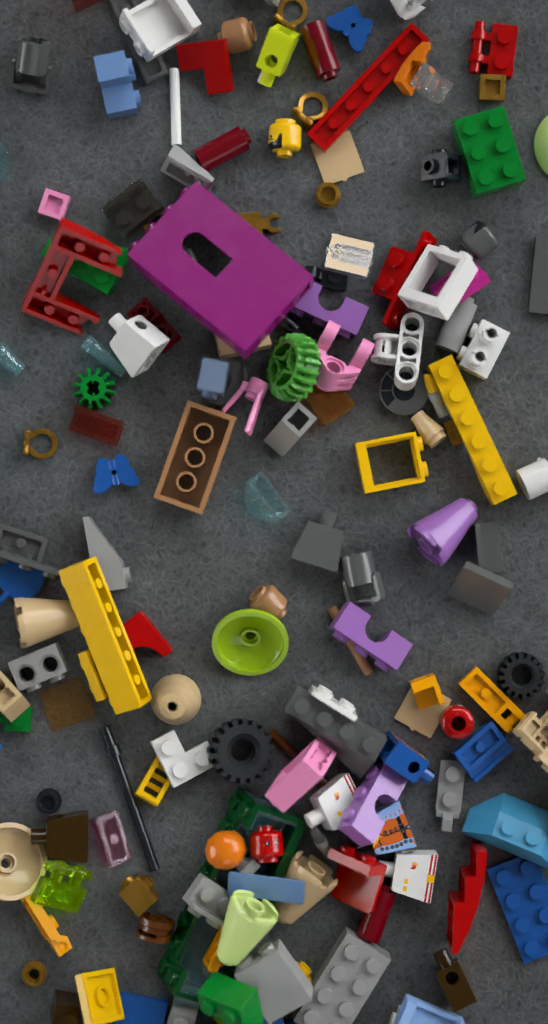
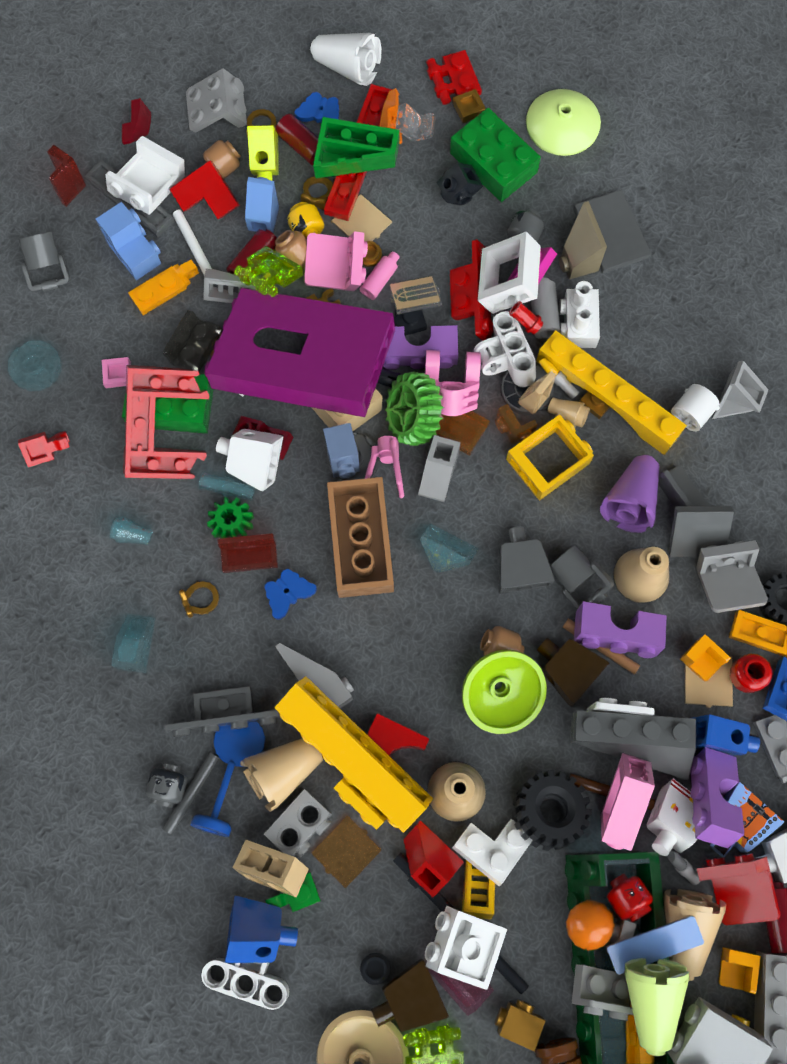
camera: 20 degrees left, 15 degrees down
(123, 820) = (465, 947): none -> white plate
(128, 742) = (430, 859): none -> red slope
(129, 139) = (163, 286): none -> light orange hinge
(233, 174) = (273, 267): none -> clear neon green plate
(251, 105) = (261, 204): none -> medium blue slope
(260, 162) = (292, 246): none -> medium nougat head
(292, 191) = (335, 261): none -> bright pink bracket
(315, 647) = (571, 668): none -> dark brown torso
(324, 933) = (739, 970): none -> light orange panel
(327, 222) = (380, 276): none -> bright pink cylinder
(358, 90) = (354, 148): none -> green wedge
(369, 415) = (507, 423): none -> clear orange bracket
(405, 402) = (537, 393): none -> tan slope
(405, 593) = (642, 574): none -> tan cone
(429, 327) = (526, 318): none -> red pin
(484, 638) = (731, 577): none -> light grey bracket
(518, 285) = (584, 245): none -> dark tan slope

